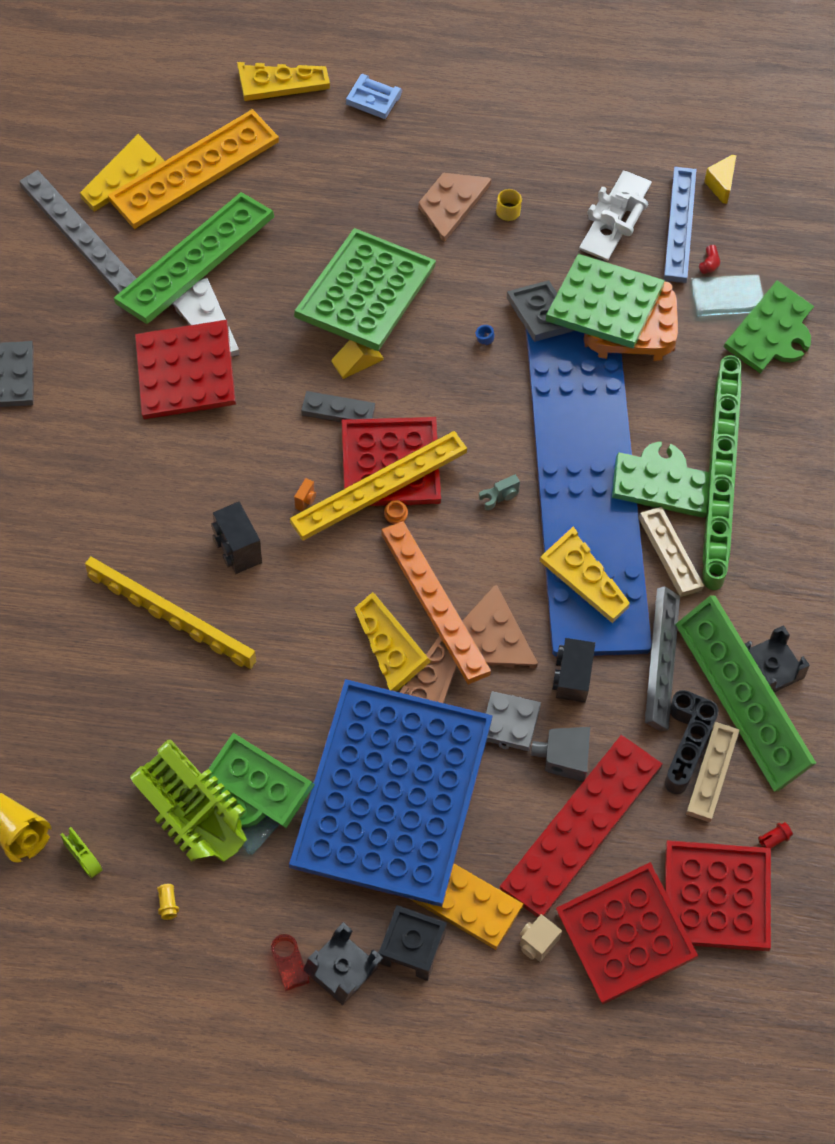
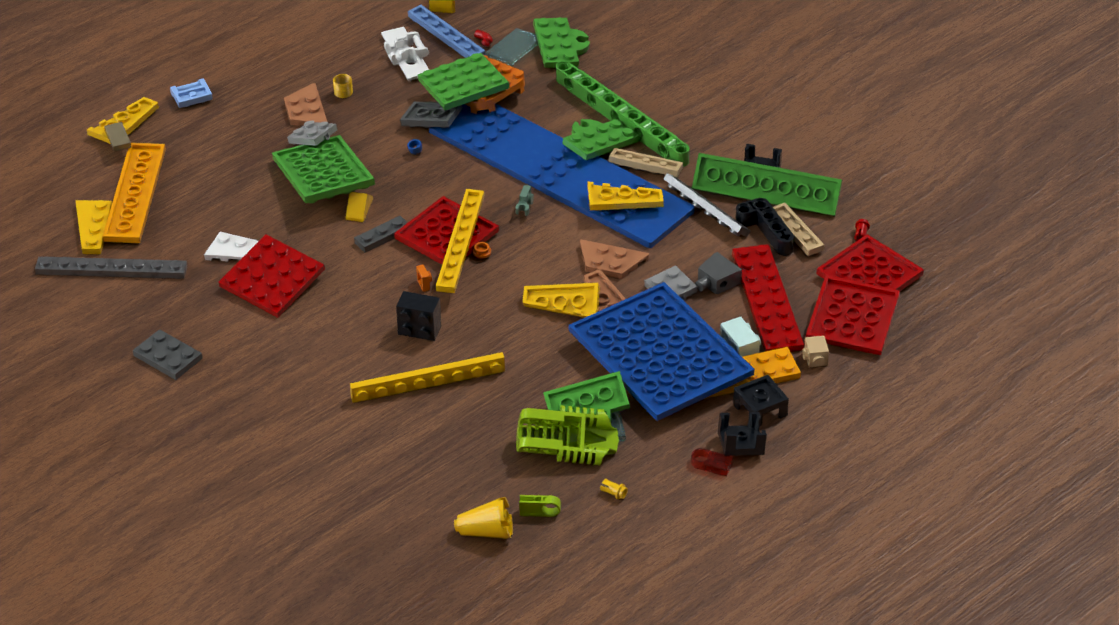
camera: 45 degrees left, 20 degrees down
(193, 258) = (200, 226): bright green plate -> none
(247, 93) = (117, 136): none -> dark tan tile
(412, 236) = (312, 133): none -> light grey plate
(436, 603) = (561, 266): orange plate -> none
(490, 849) = (740, 336): none -> light aqua brick
(575, 670) = (676, 234): black brick -> none

